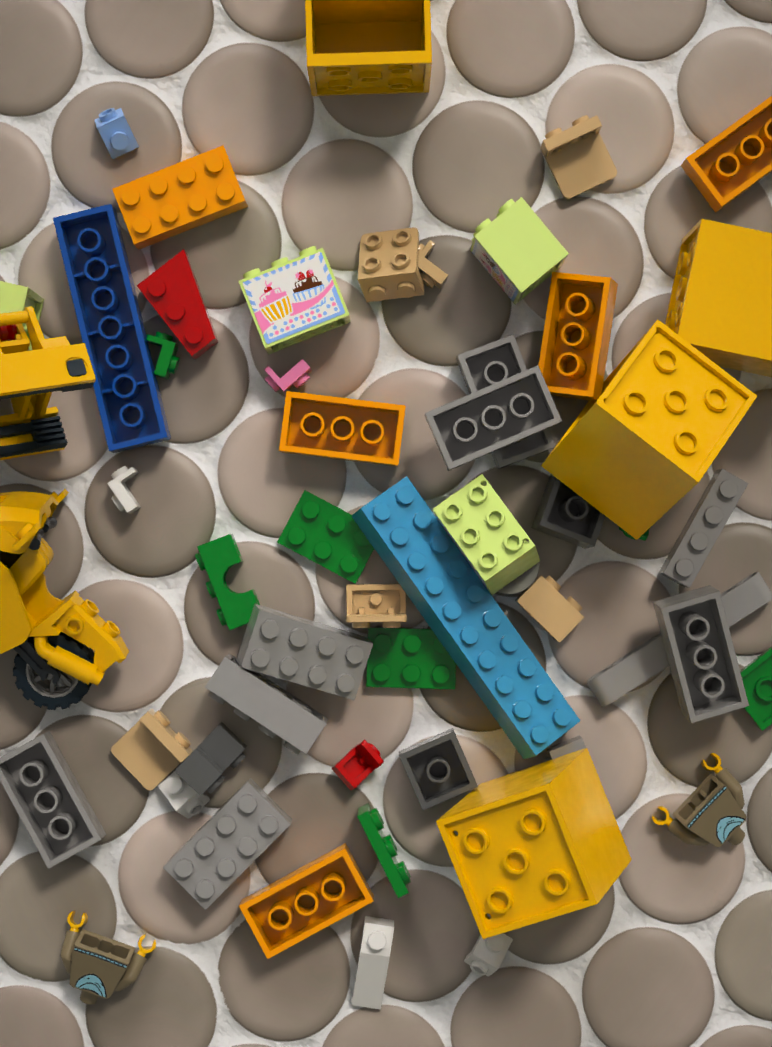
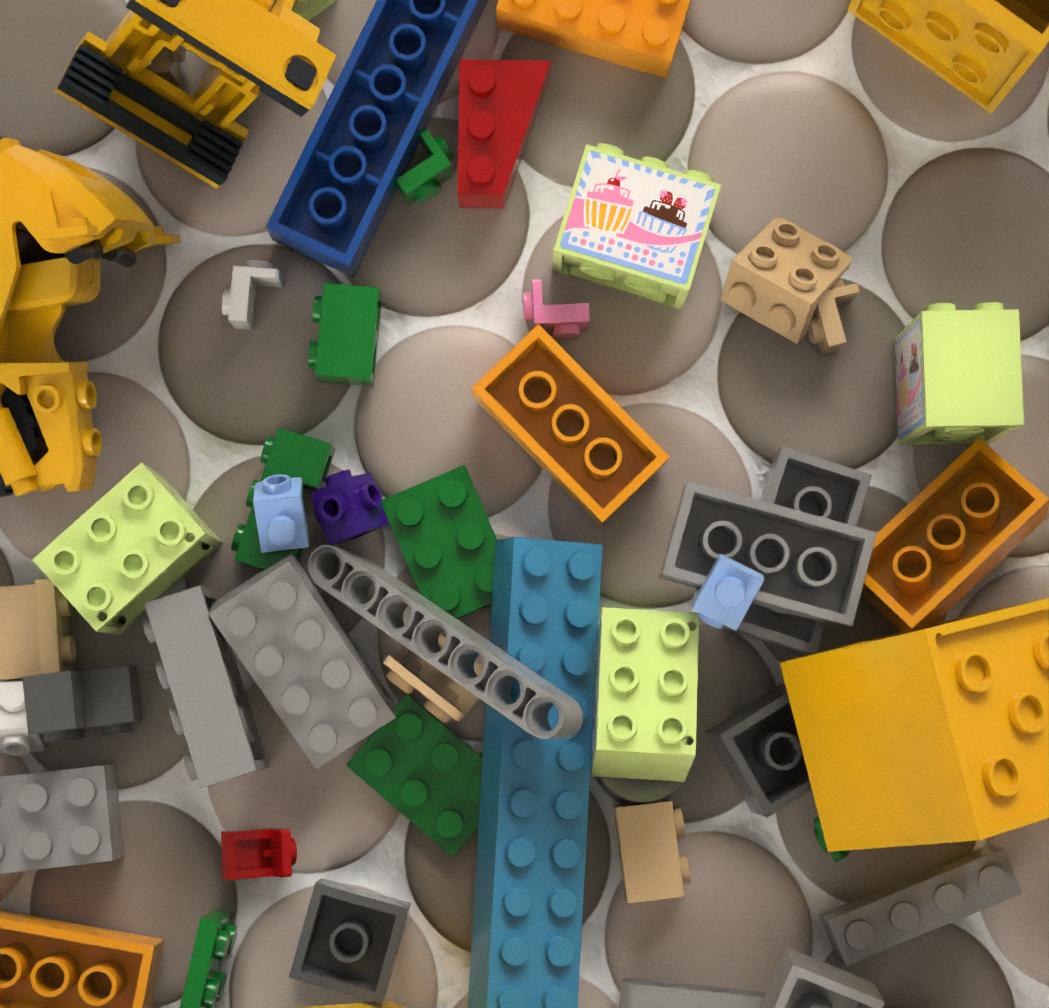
camera: 40 degrees right, 5 degrees down
(173, 668) = (127, 550): none -> yellowish green container
(192, 471) = (346, 335): none -> green brick
(234, 588) = (280, 513): none -> light blue bracket
(264, 558) = (348, 507): none -> dark purple brick
(378, 583) = (461, 645): none -> light grey beam
(488, 454) = (726, 593): none -> light blue bracket

